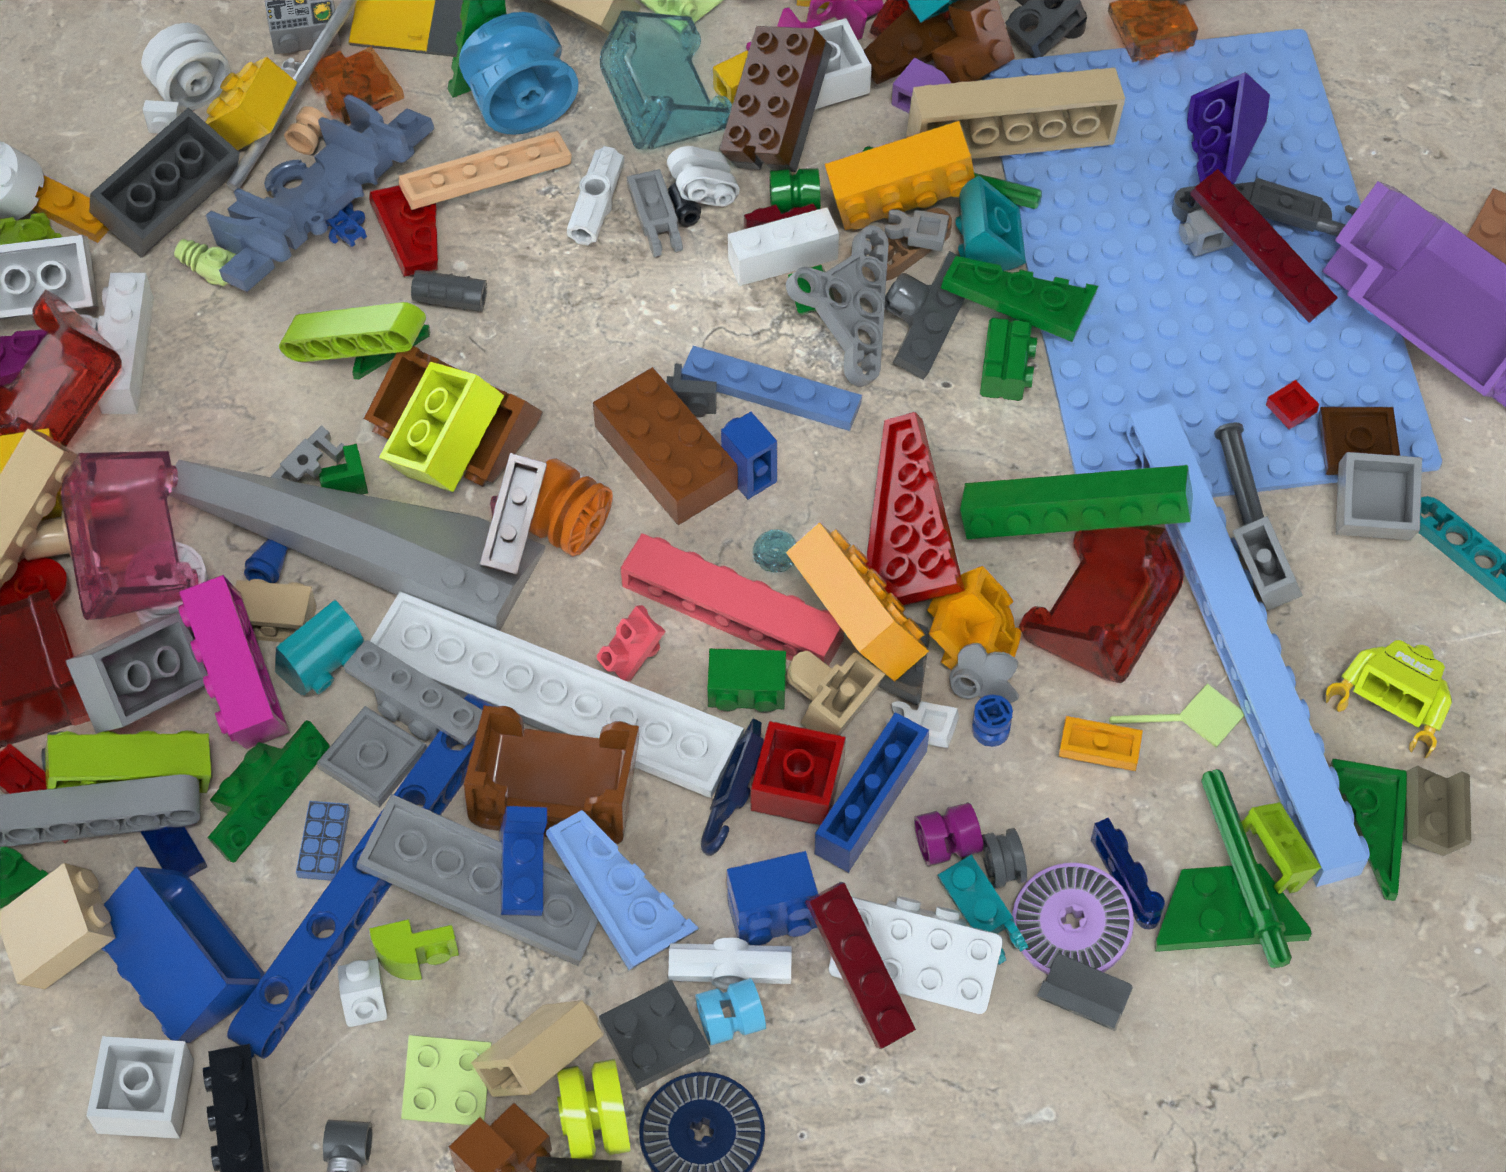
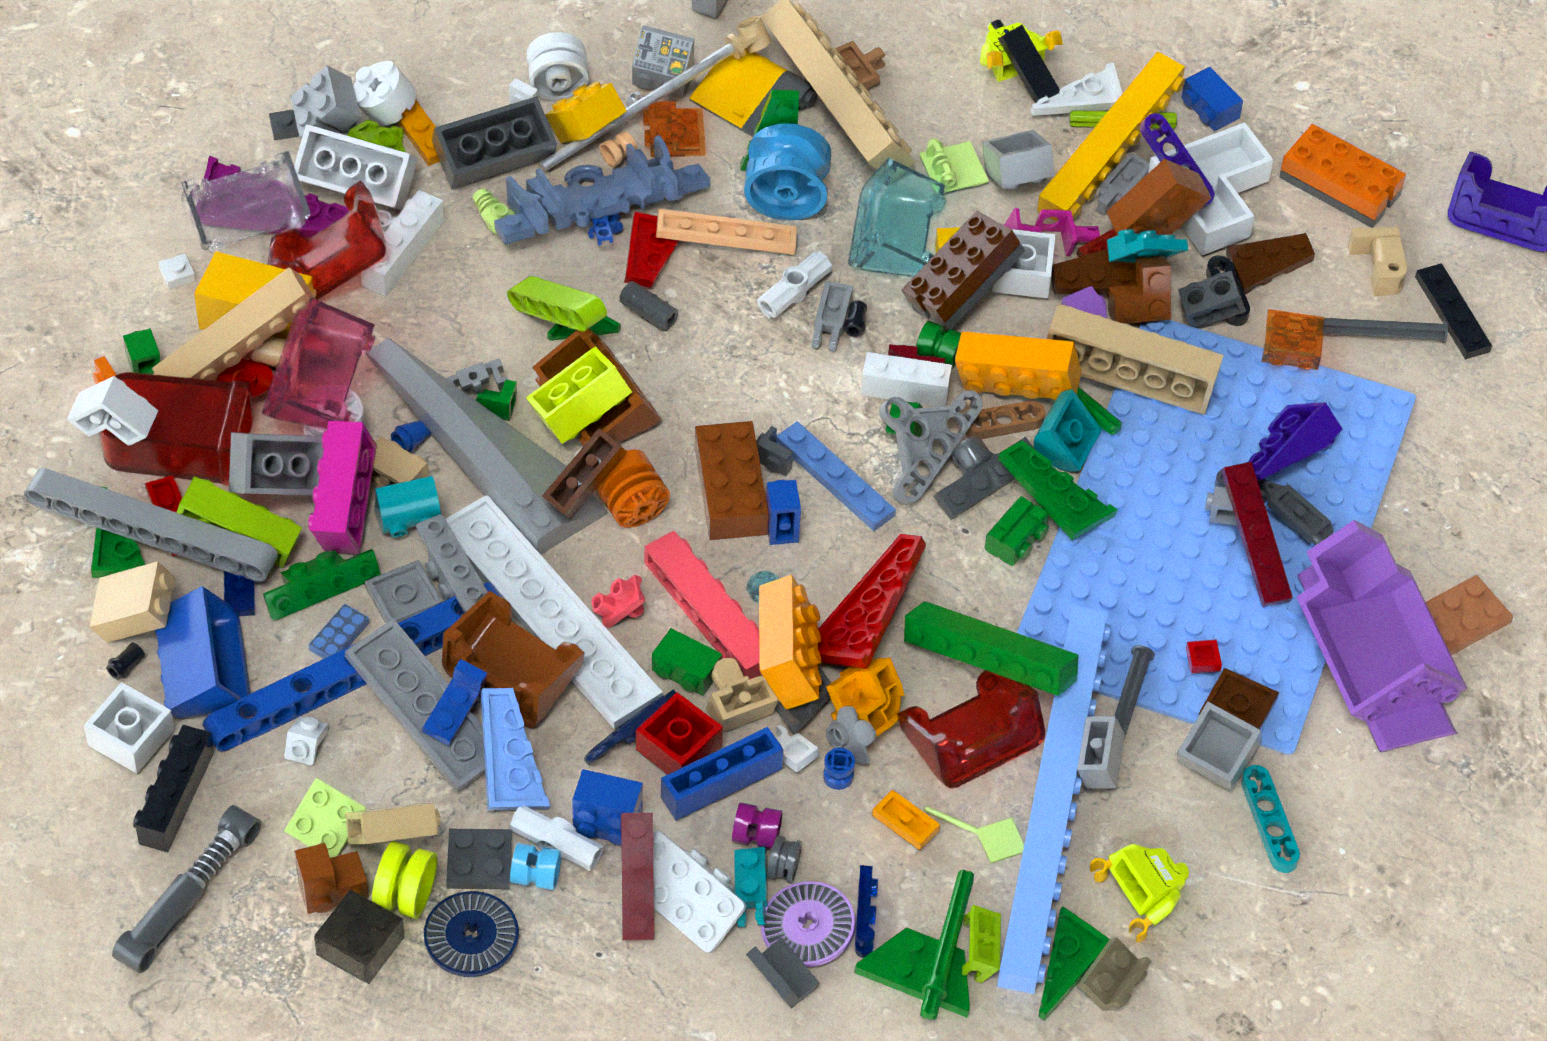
camera: 25 degrees right, 5 degrees down
(82, 1006) = (119, 666): none -> black pin
(403, 951) = (349, 727): lime brick -> none
(703, 176) = (879, 304): white brick -> none
(923, 229) = (1014, 412): light grey plate -> none

